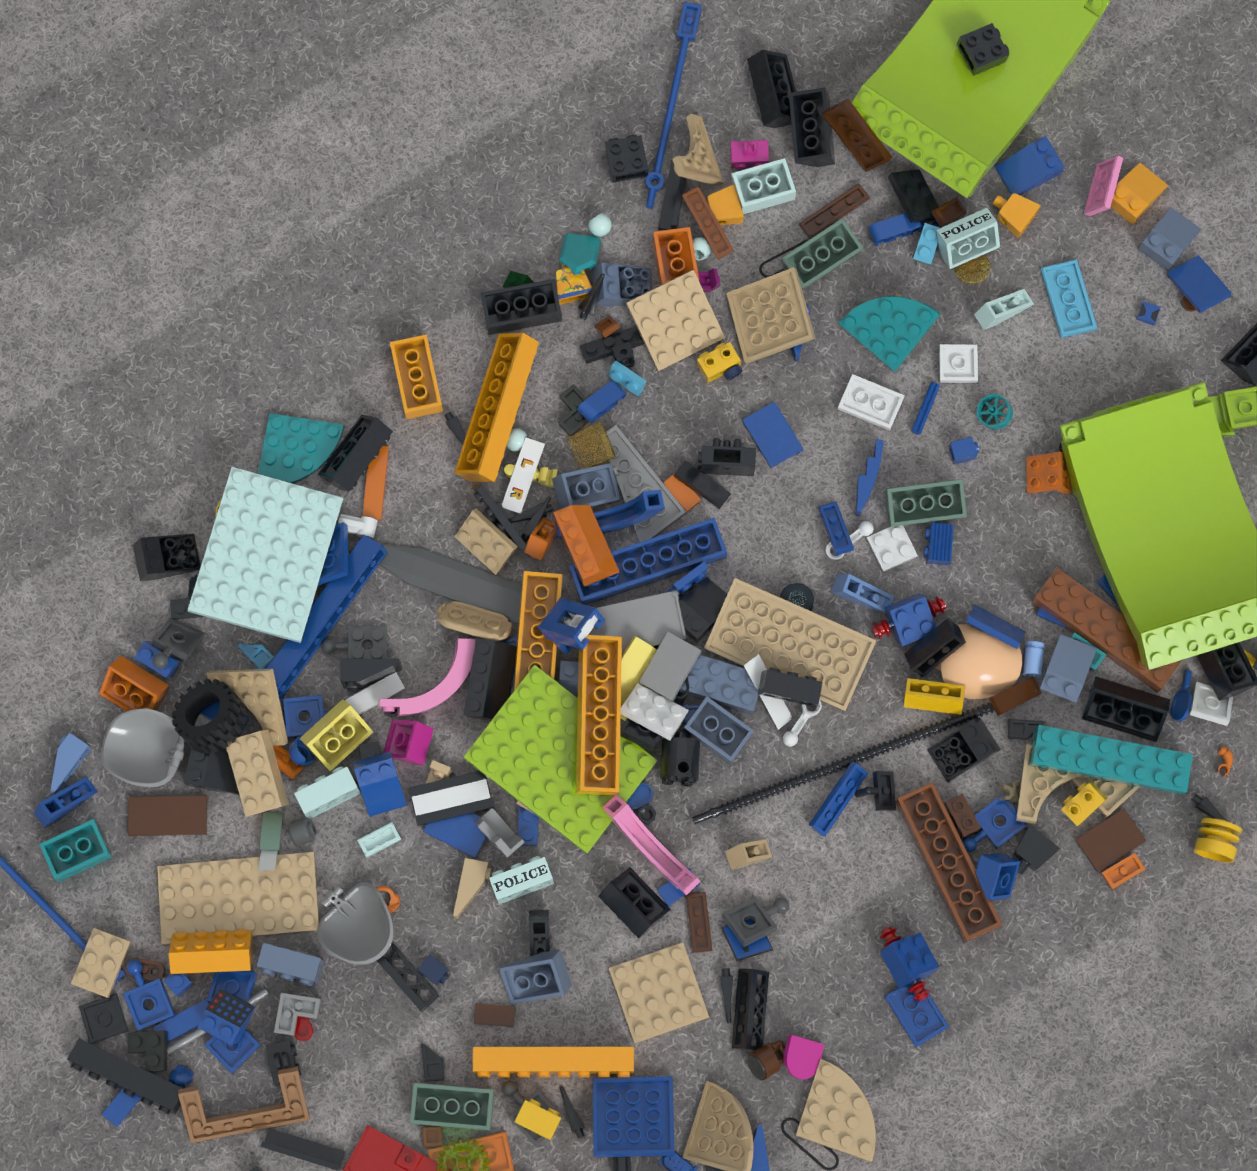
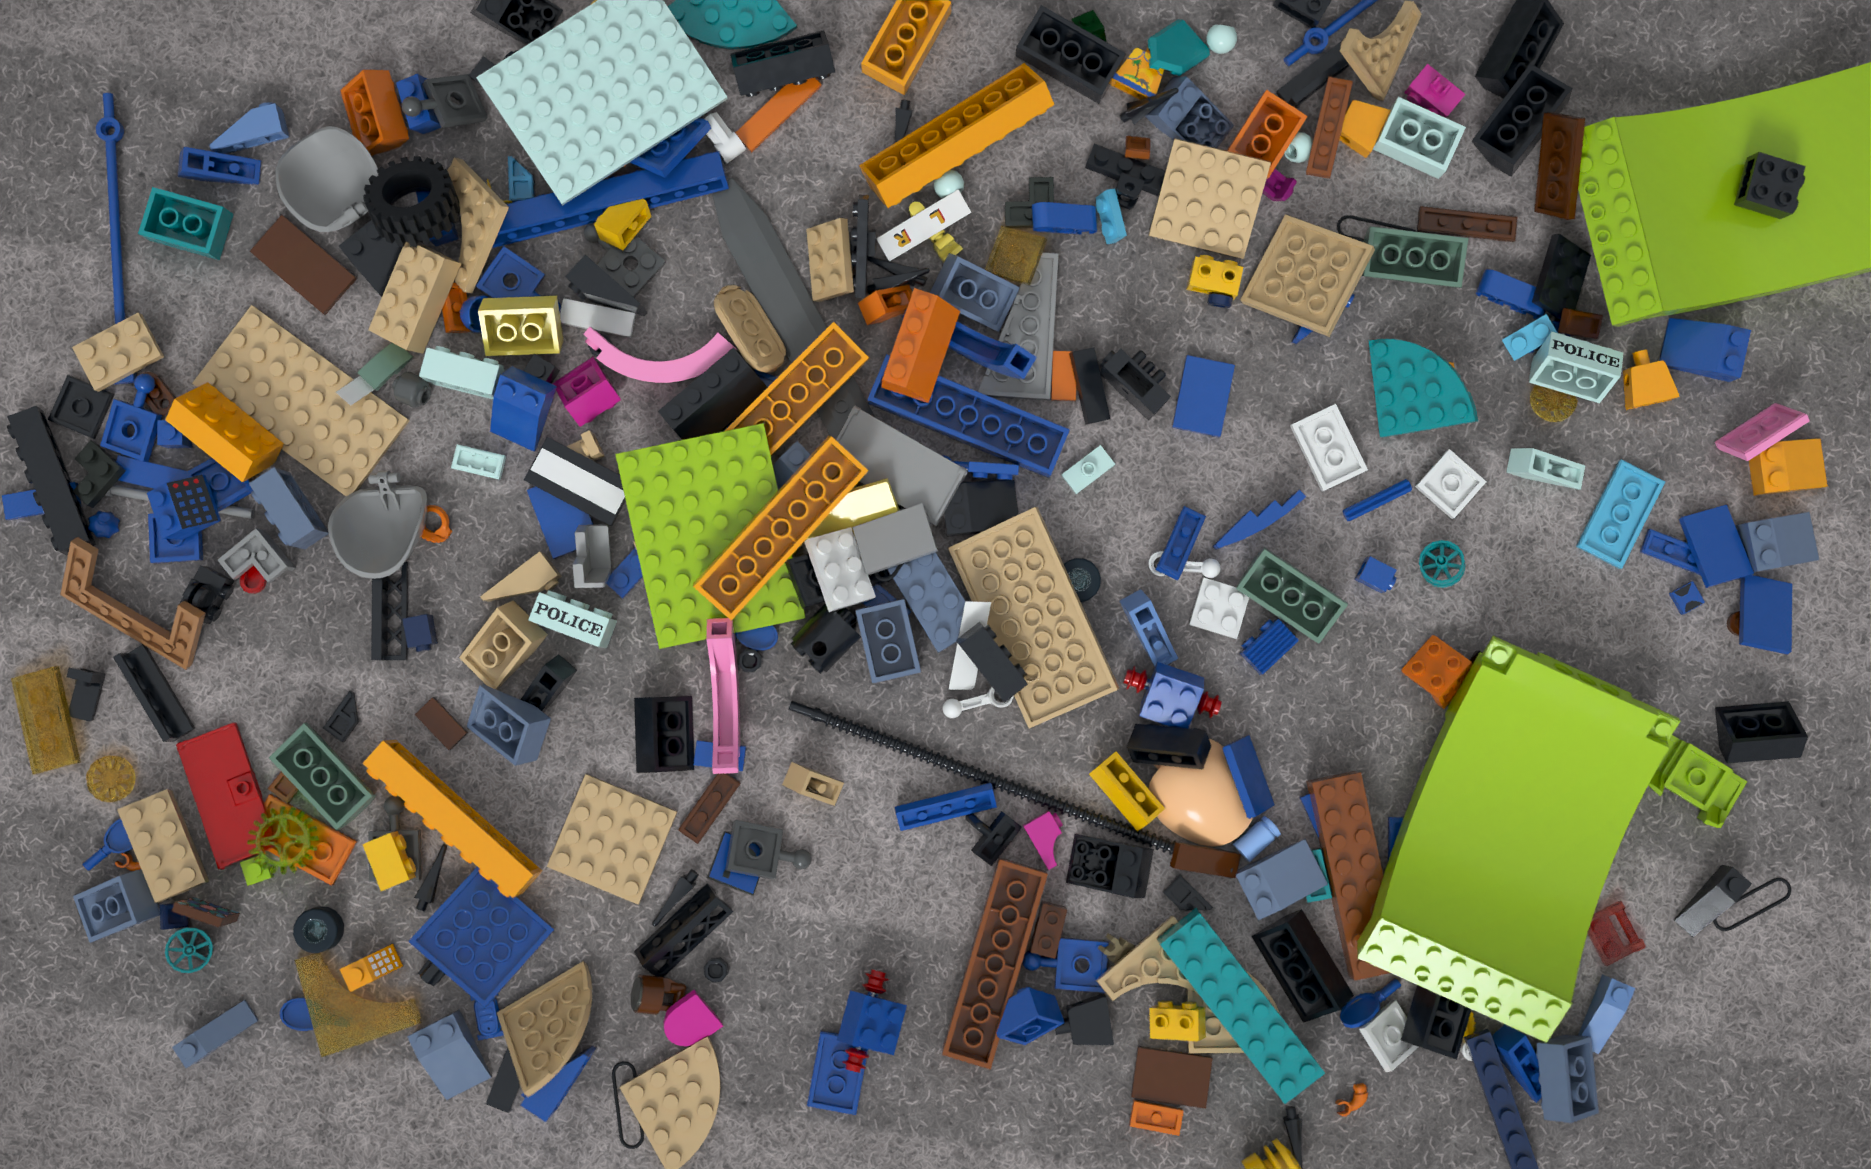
camera: 40 degrees right, 10 degrees up
(343, 624) = (622, 222): none -> yellow slope
(490, 935) = (503, 644): none -> tan slope
(570, 624) = (829, 414): blue brick -> none
(744, 533) = (1088, 469): none -> light aqua plate
(790, 1014) = (716, 969): none -> black tile
(908, 764) = (1043, 833): none -> dark pink arch
(1121, 292) = (1669, 550): none -> blue tile
(1137, 270) = (1716, 546): none -> blue tile

